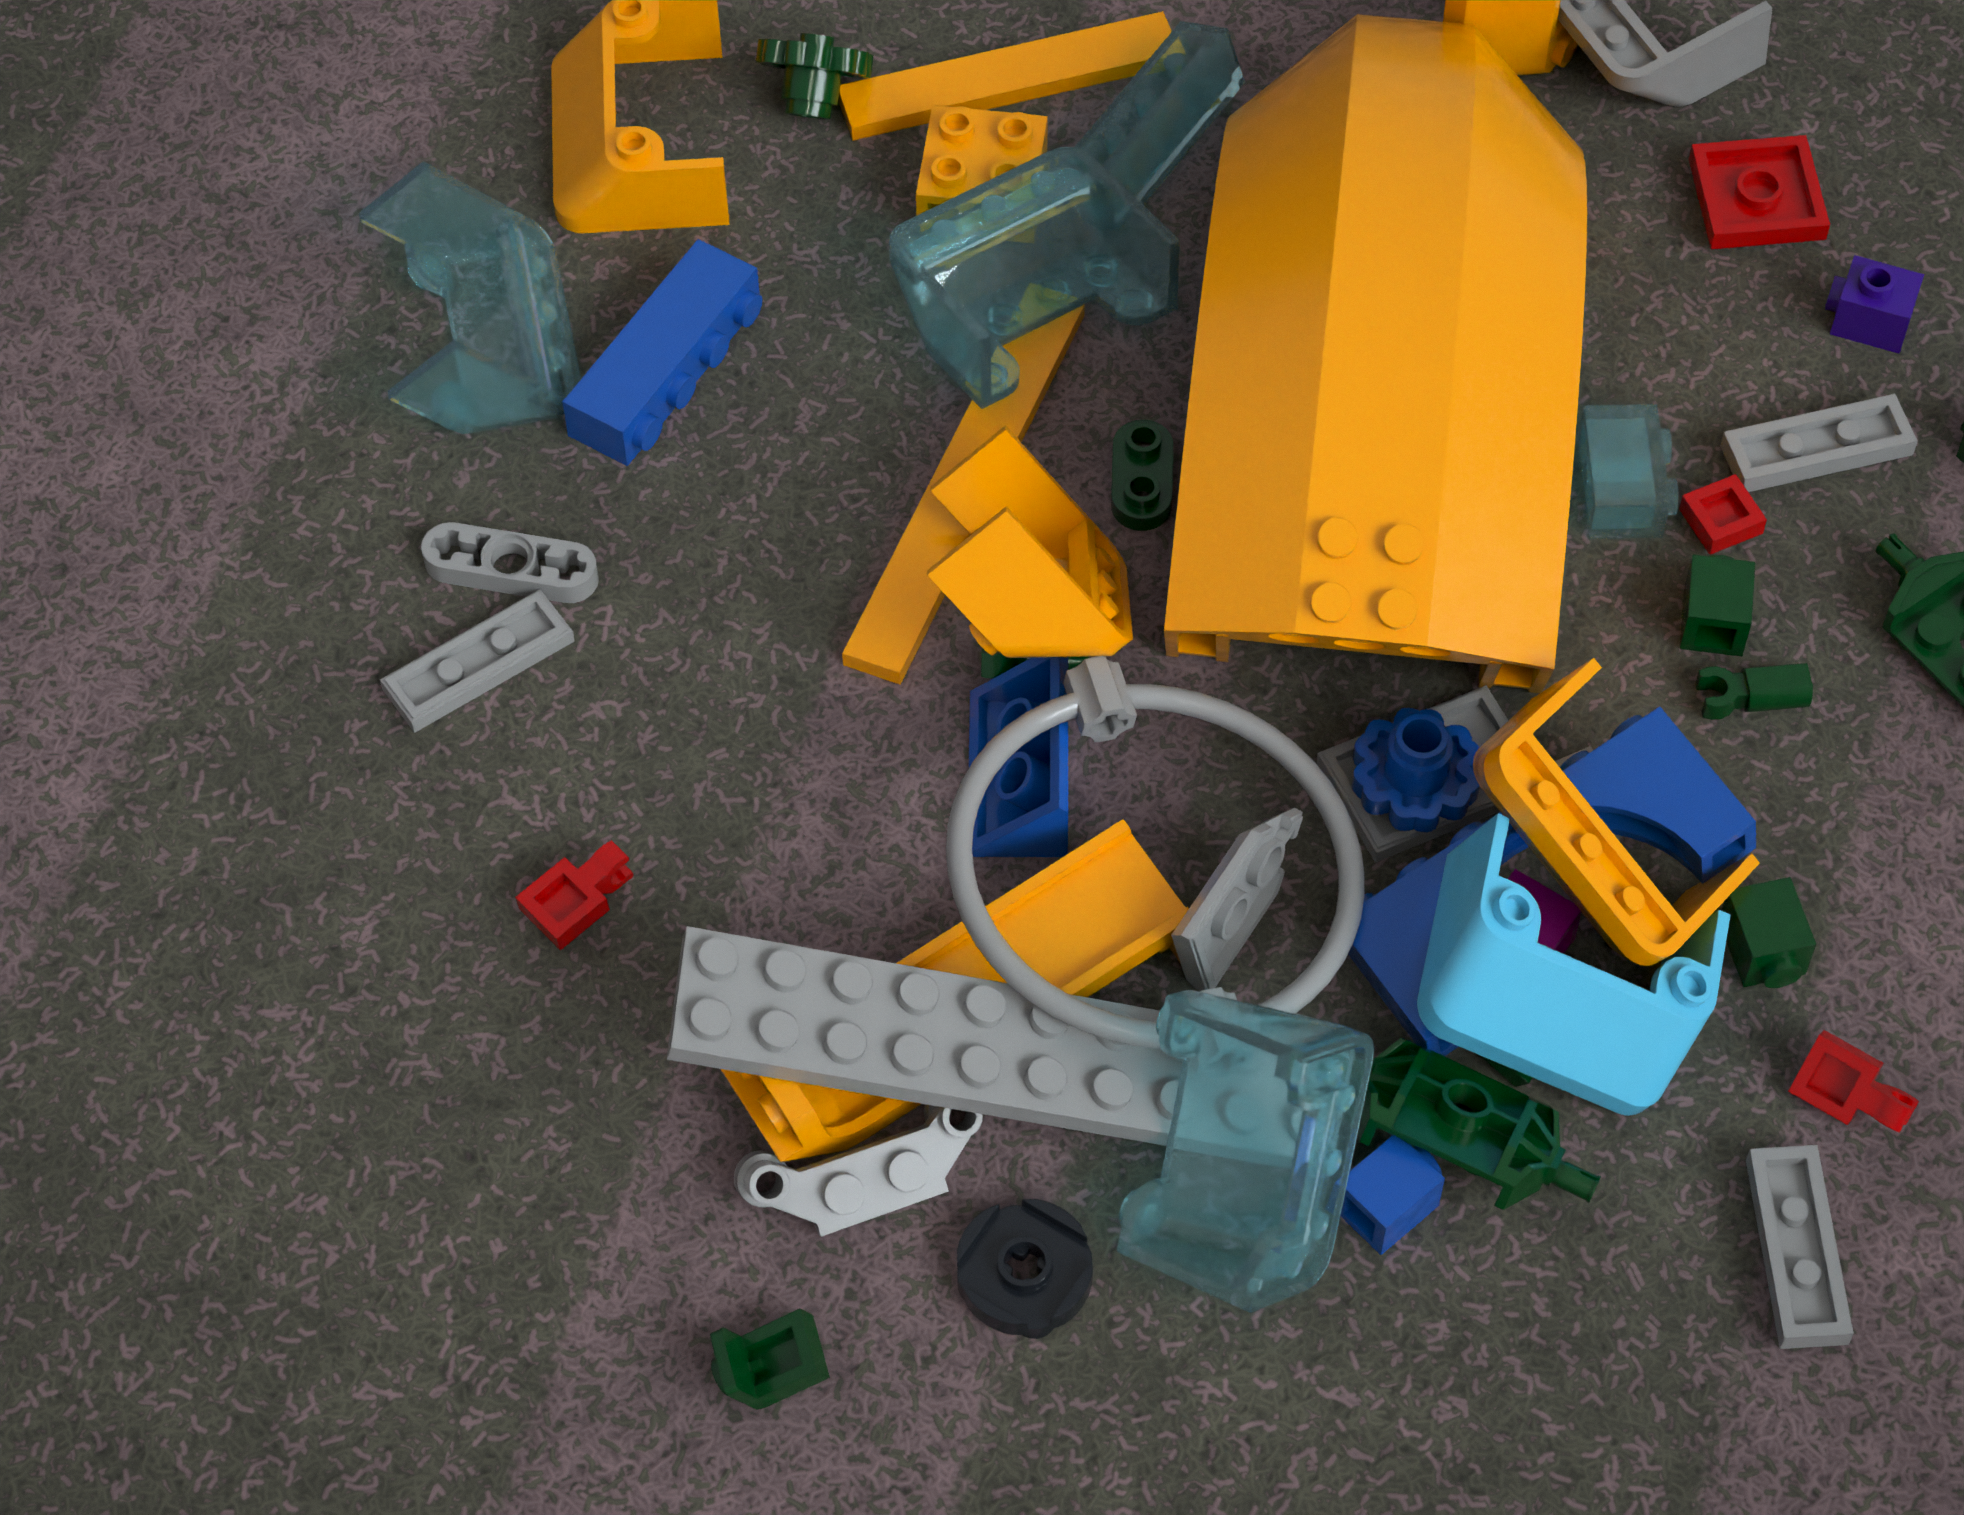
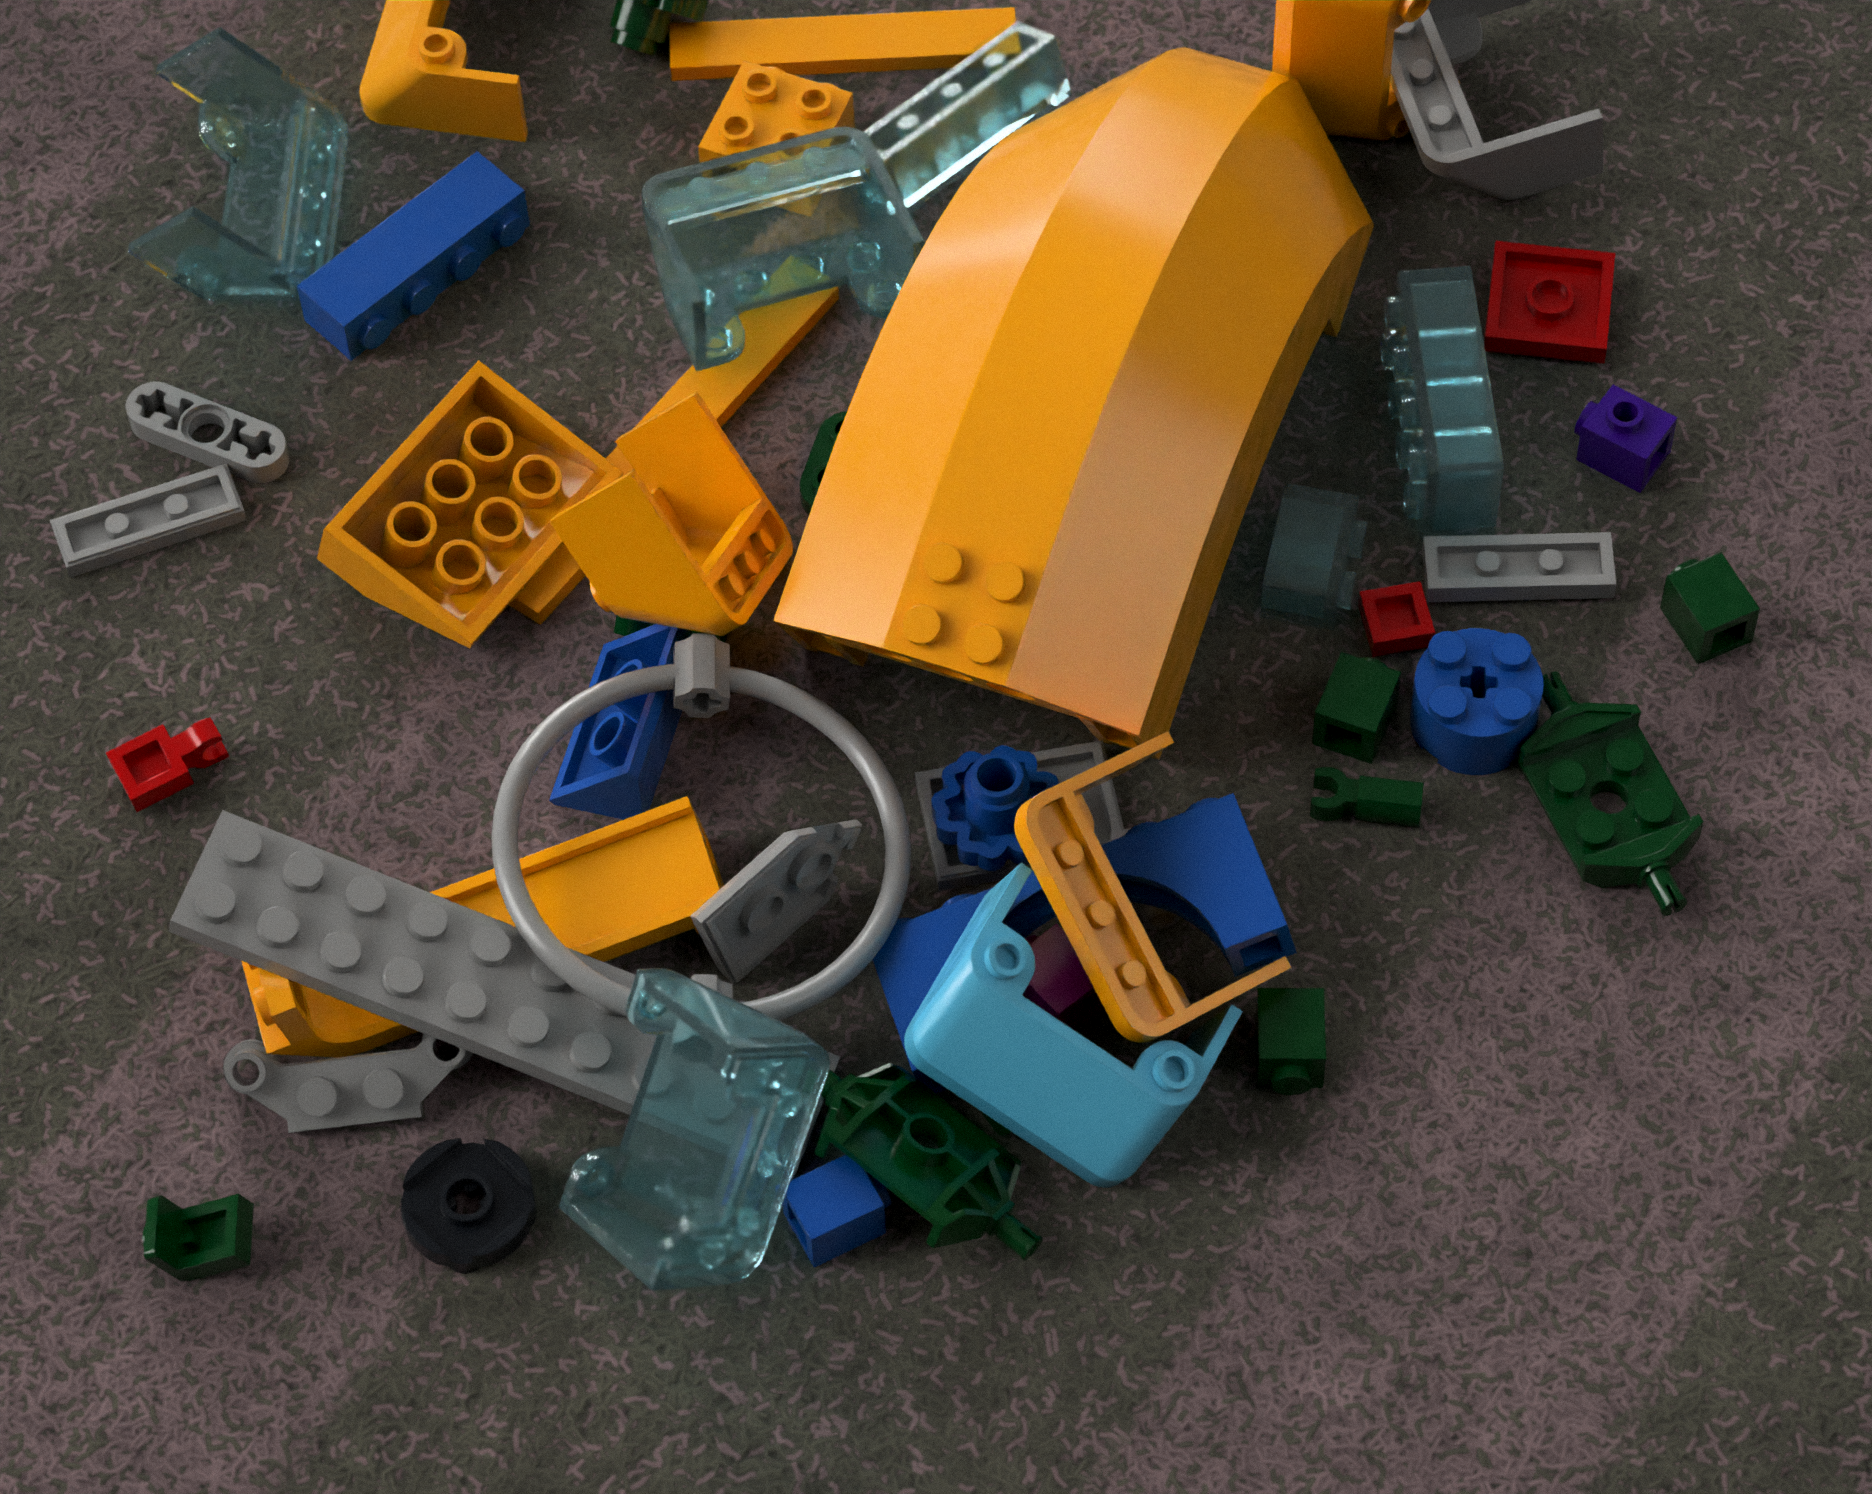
camera: 15 degrees right, 0 degrees up
(802, 587) = (464, 509): none -> light orange slope
(1706, 303) = (1442, 403): none -> clear light blue brick
(1799, 1247) = (1214, 1347): light grey plate -> none
(1829, 574) = (1476, 699): none -> blue brick
(1842, 1081) = (1313, 1202): red plate -> none

